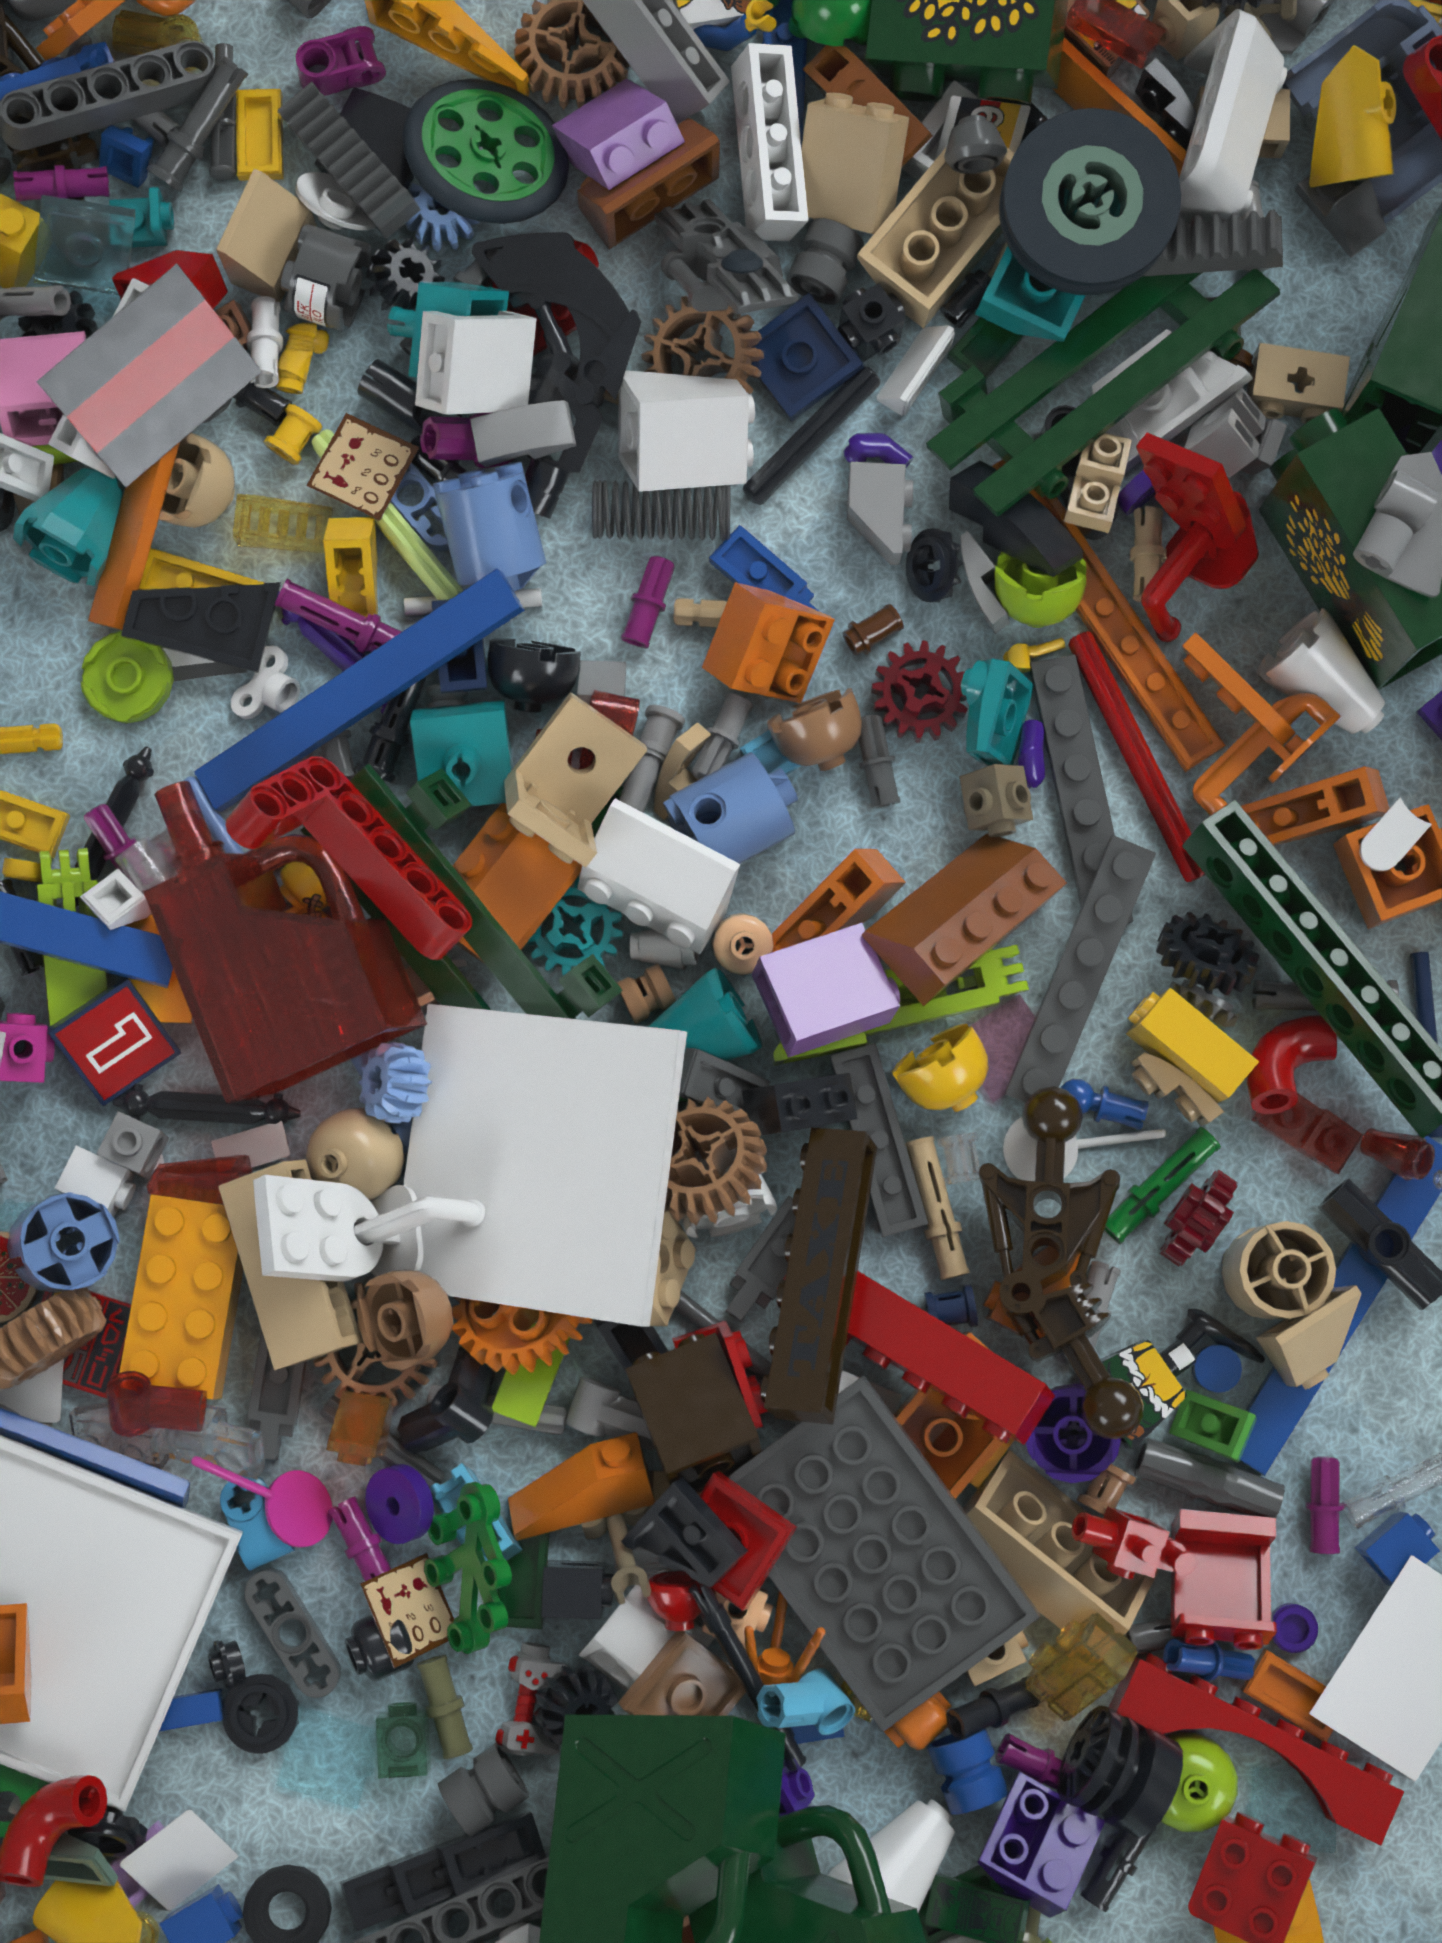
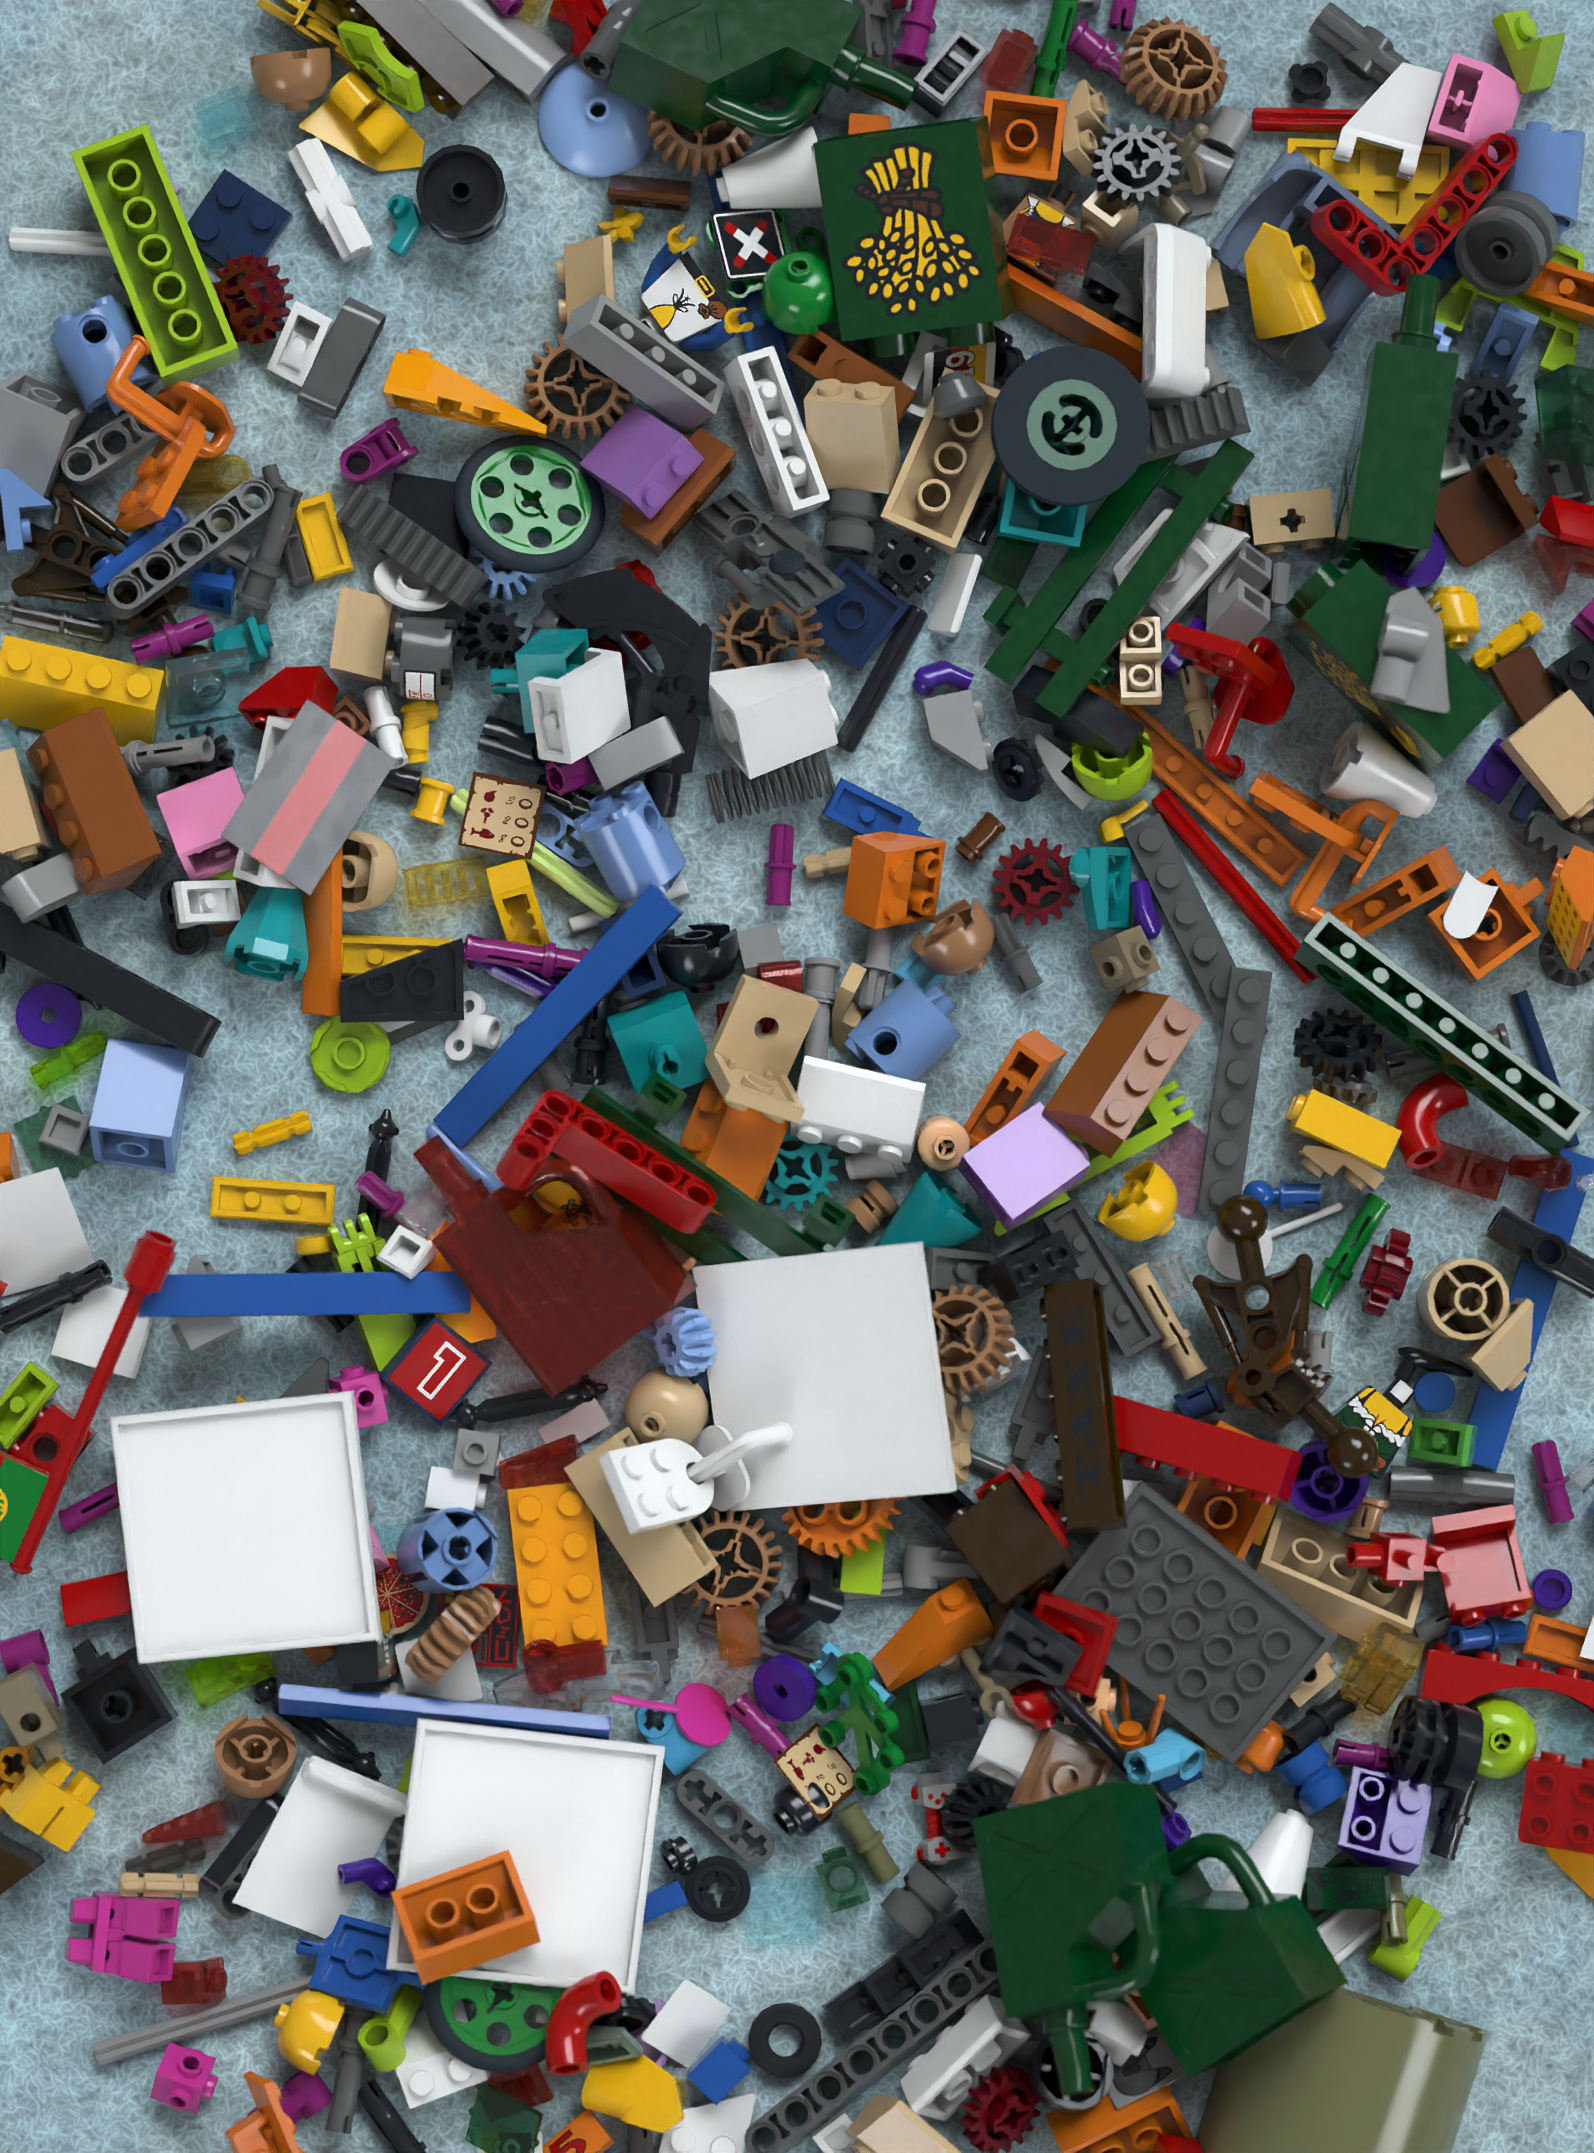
camera: 15 degrees left, 5 degrees up
(404, 1318) = (750, 1536): medium nougat cylinder -> none

